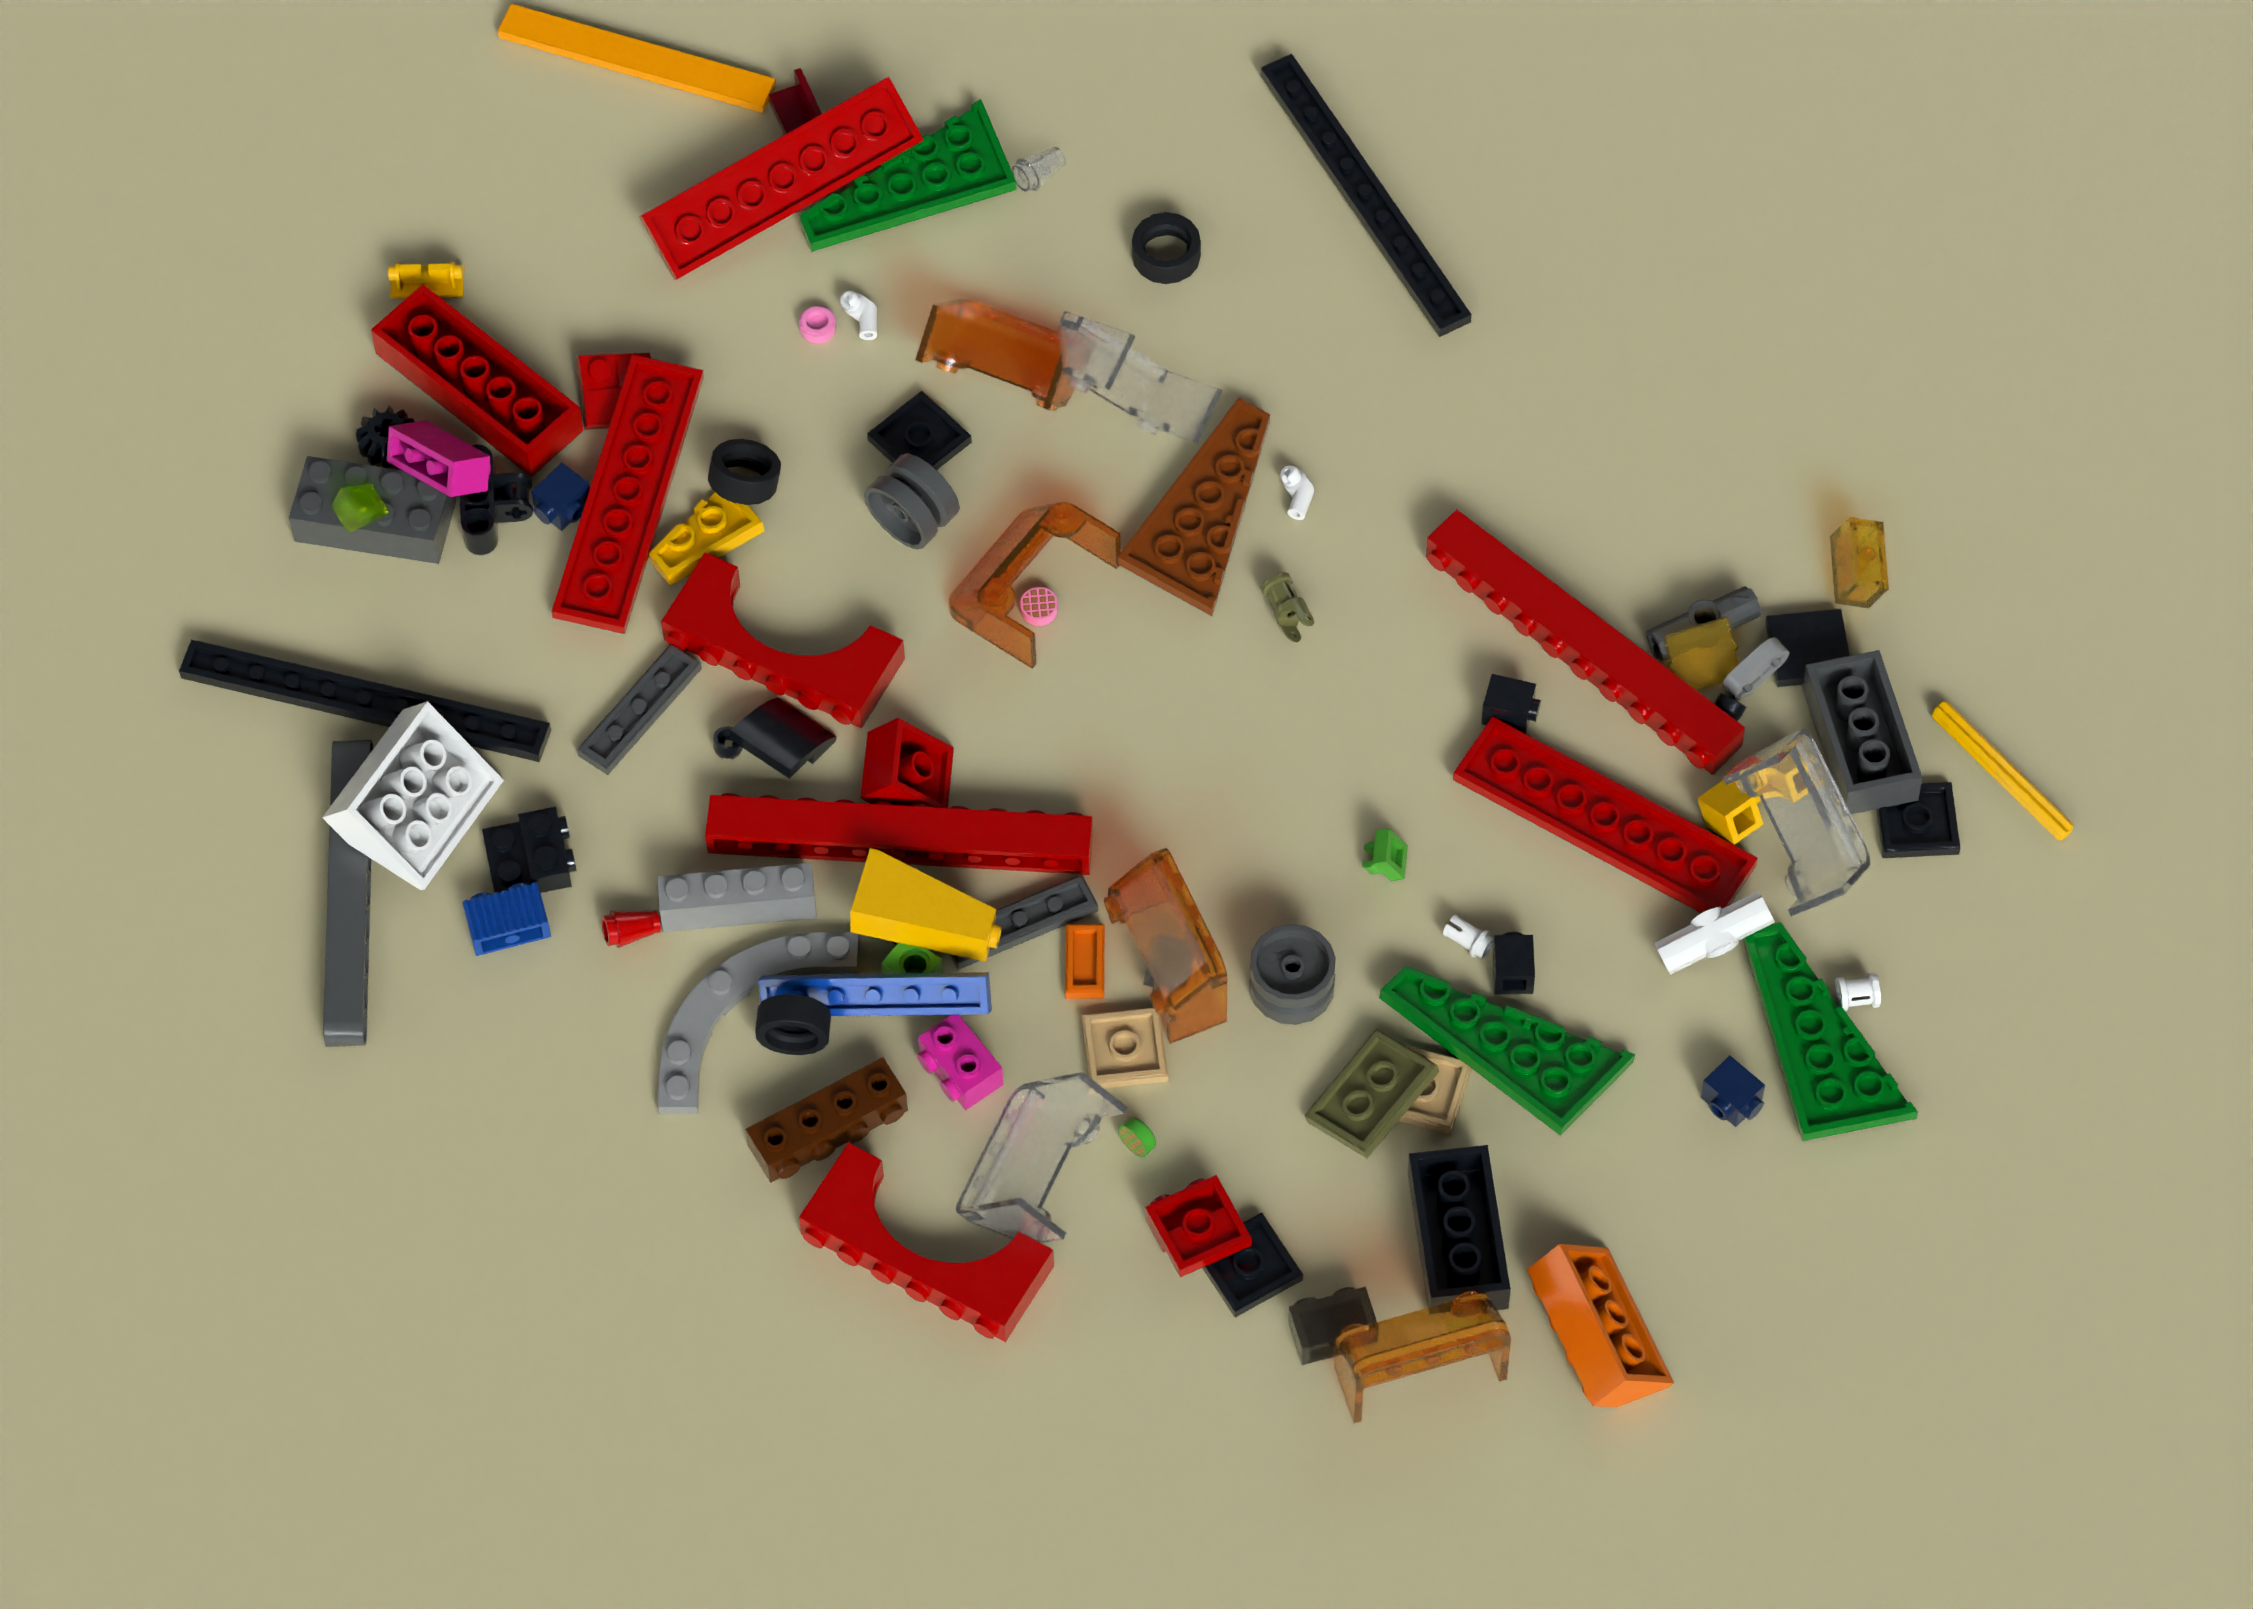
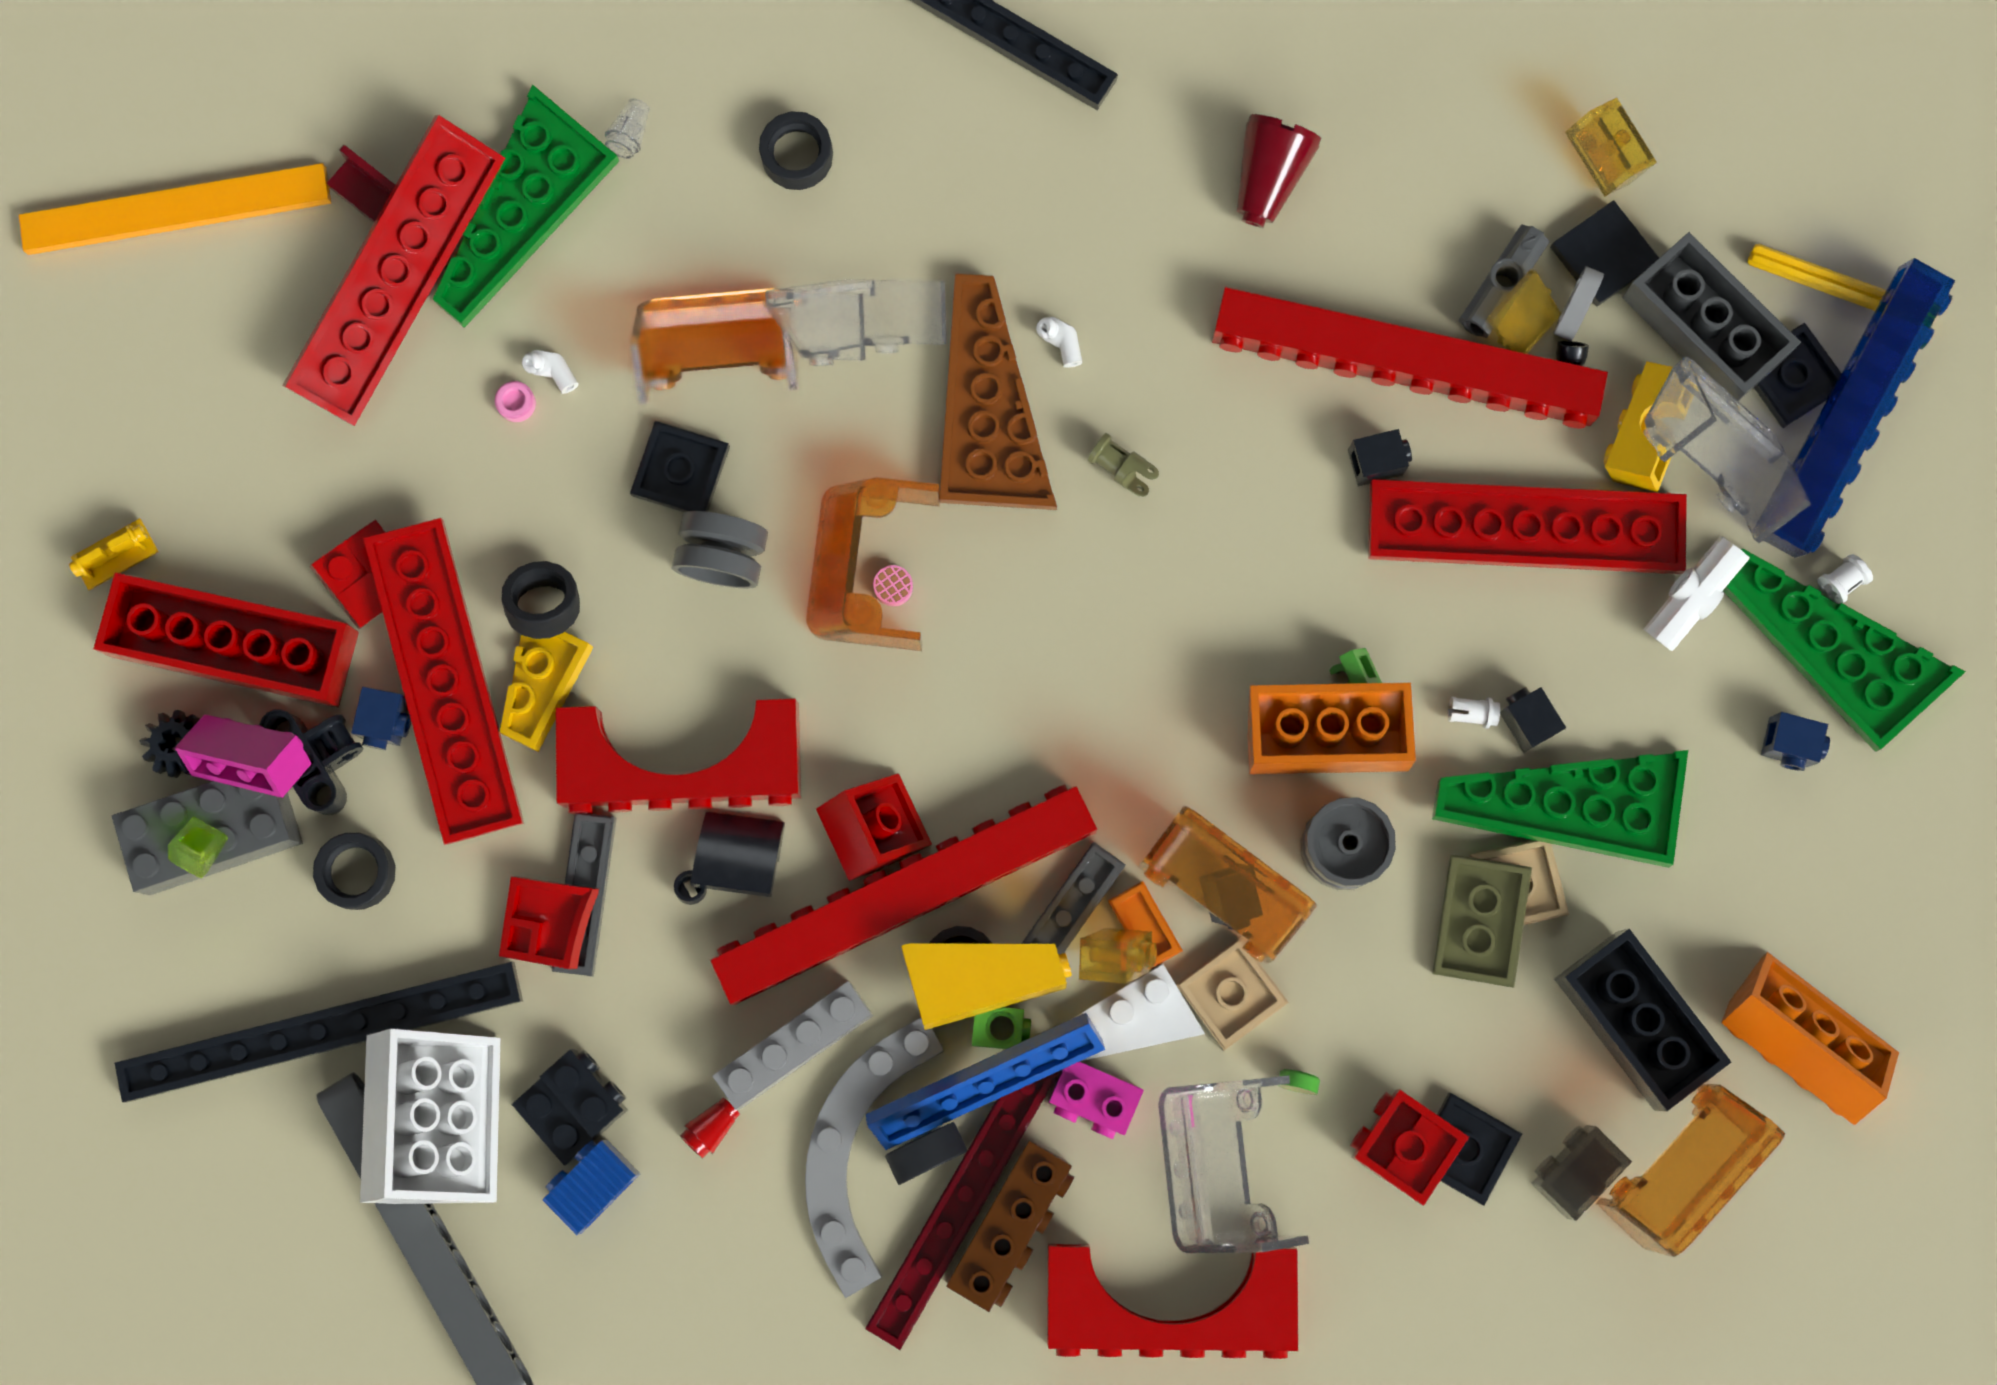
camera: 30 degrees left, 20 degrees up
(461, 574) = (323, 867): none -> black tyre
(596, 707) = (546, 921): none -> red plate
(727, 1124) = (956, 1212): none -> dark red tile
(1034, 1023) = (1143, 1015): none -> white wing
(1043, 952) = (1116, 955): none -> clear yellow brick
(1332, 881) = (1330, 728): none -> orange slope
(1556, 441) = (1271, 166): none -> dark red cone
(1946, 860) = (1862, 398): none -> clear blue brick

